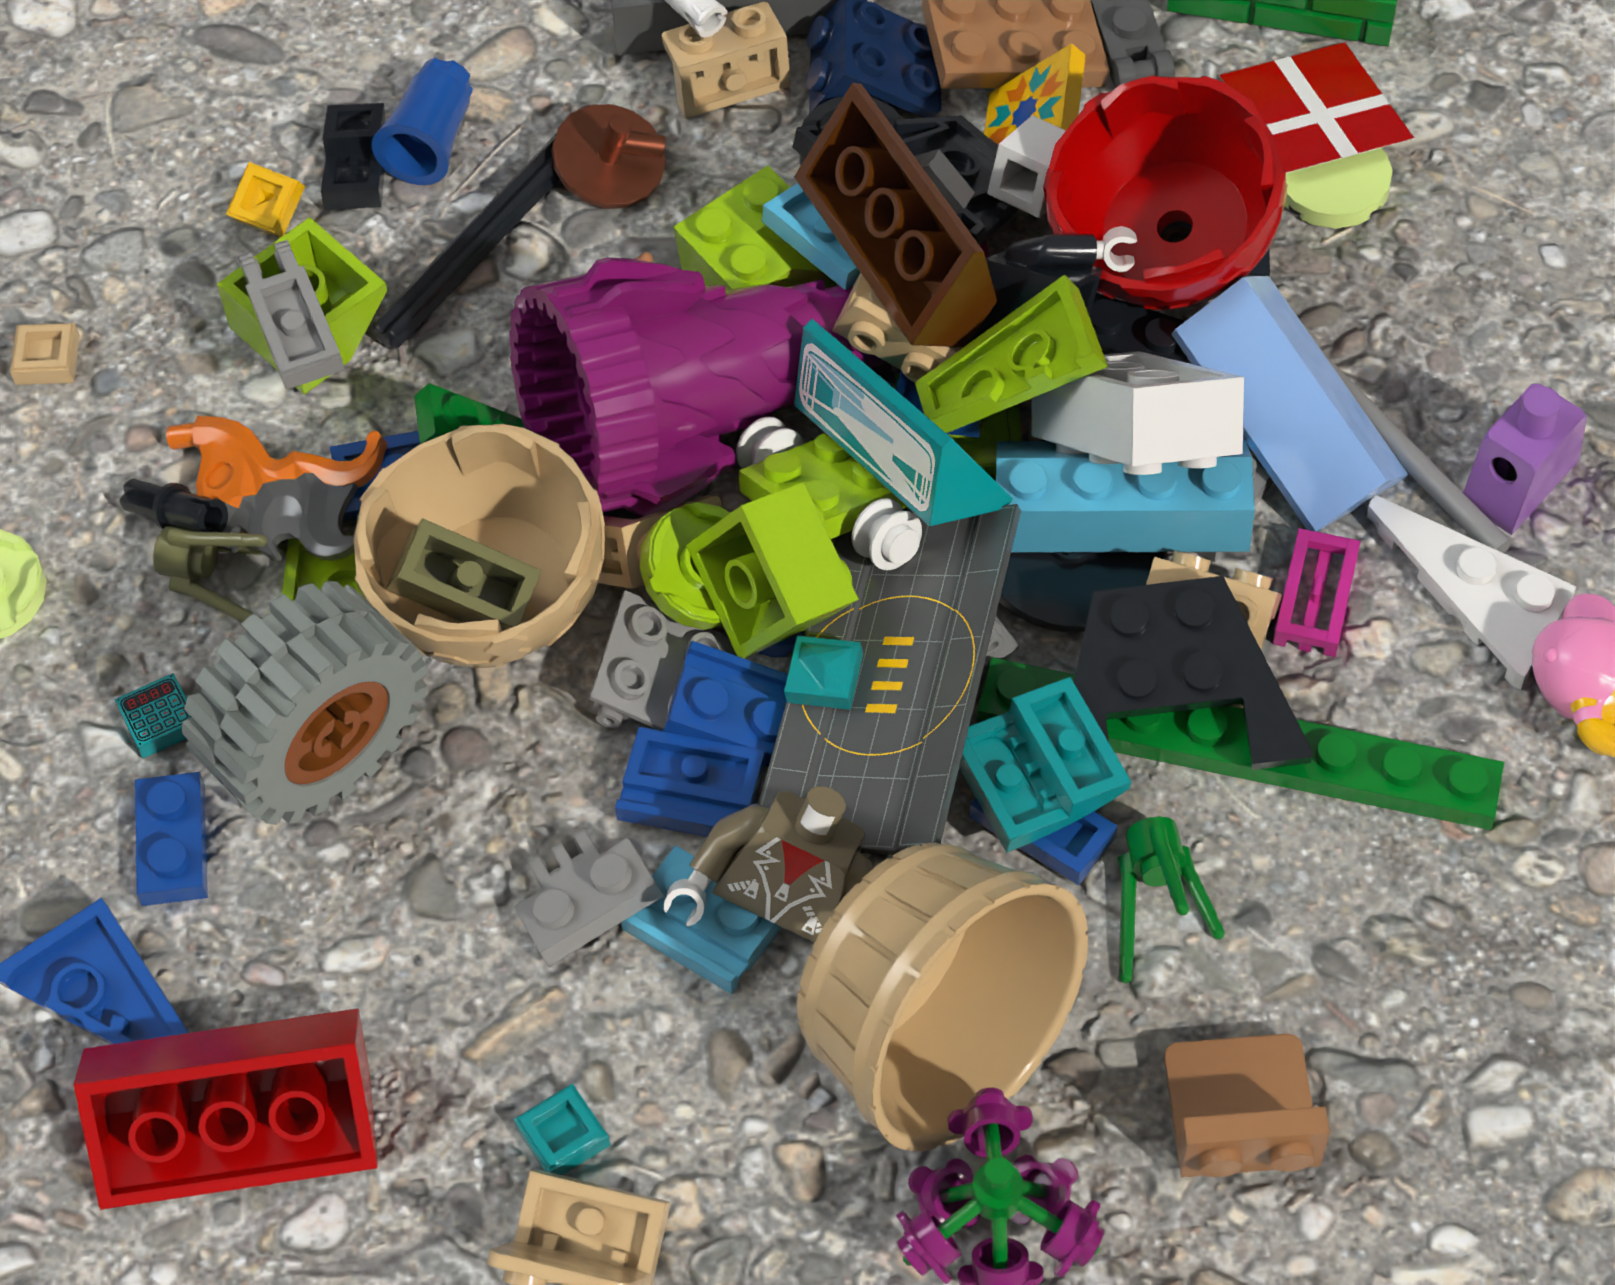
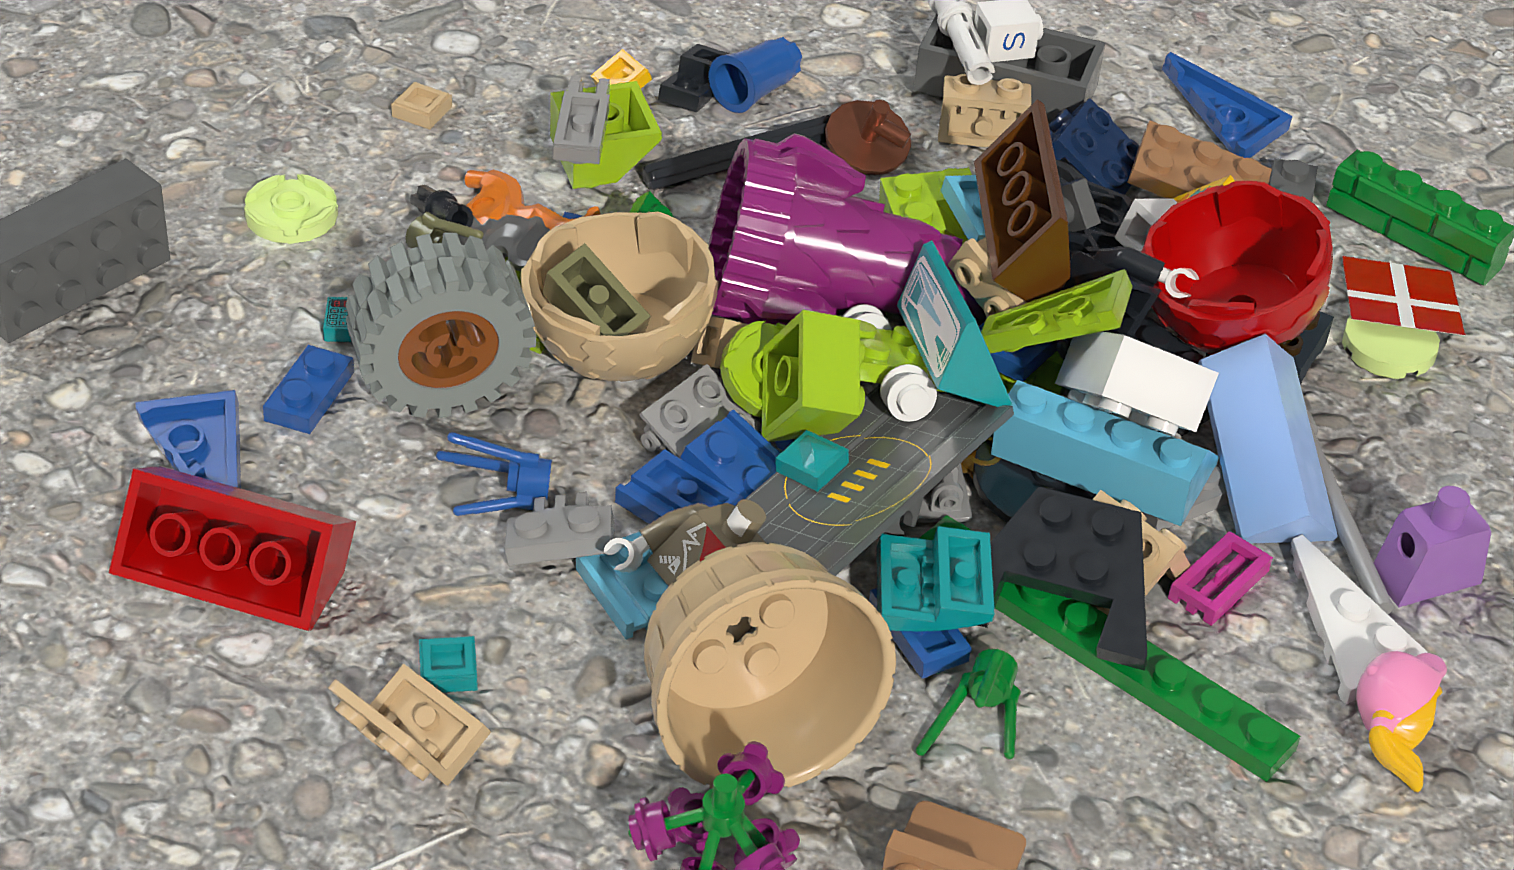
camera: 20 degrees right, 15 degrees down
(501, 840) = (526, 473): none -> blue plant

